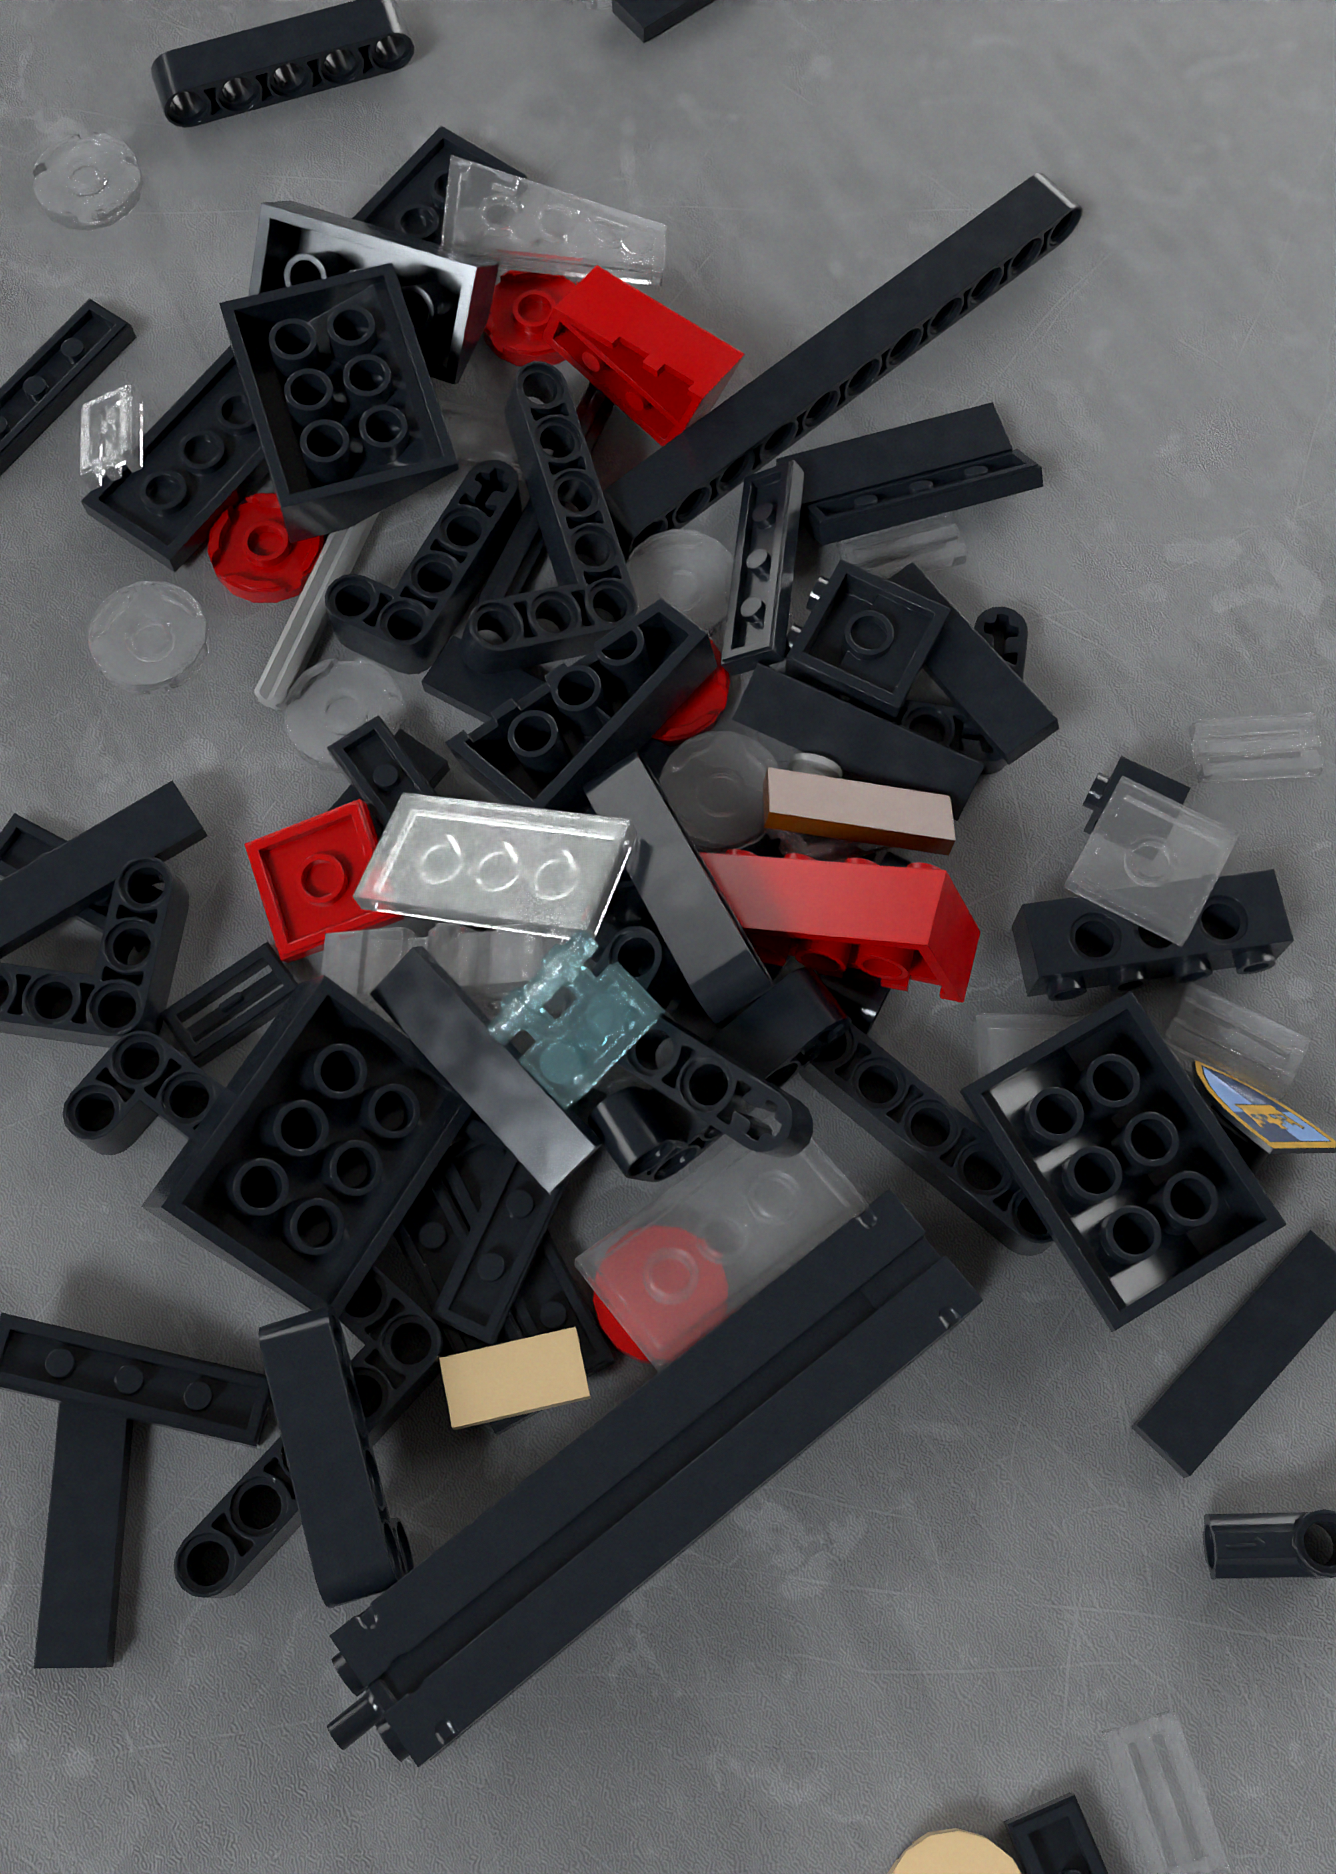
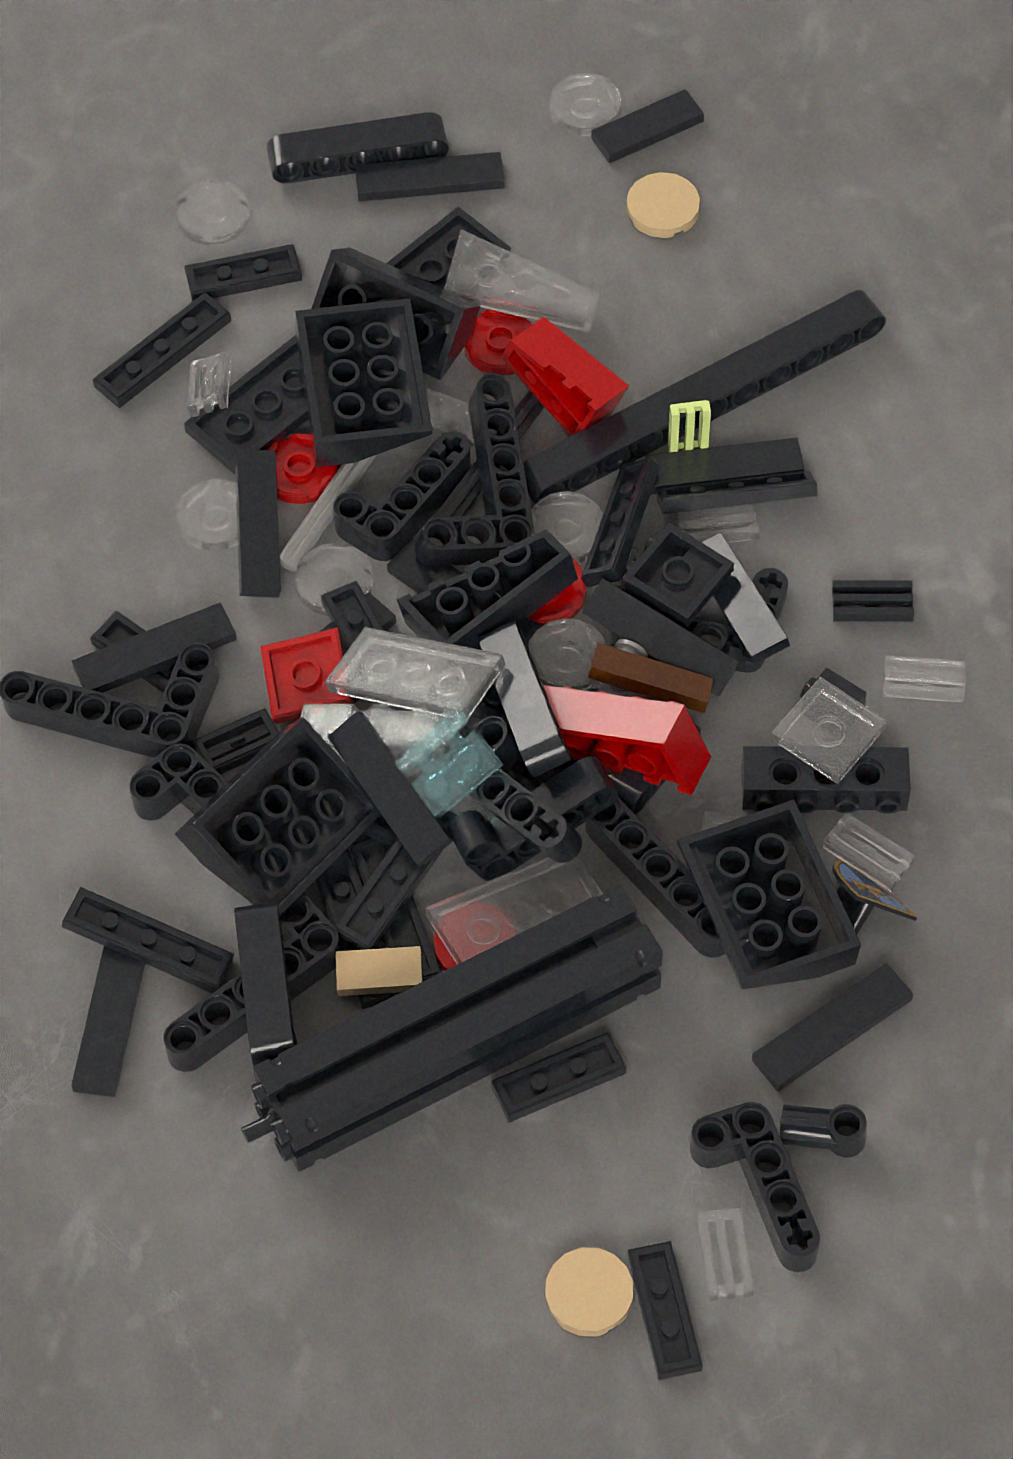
camera: 10 degrees right, 10 degrees down
(144, 262) = (243, 272): none -> black tile
(214, 644) = (257, 523): none -> black tile
(393, 90) = (429, 176): none -> black tile
(731, 90) = (663, 204): none -> tan tile
(832, 1512) = (558, 1077): none -> black tile
(860, 407) = (704, 426): none -> yellowish green tile
(1151, 626) = (872, 595): none -> black tile
(1213, 1674) = (765, 1187): none -> black beam

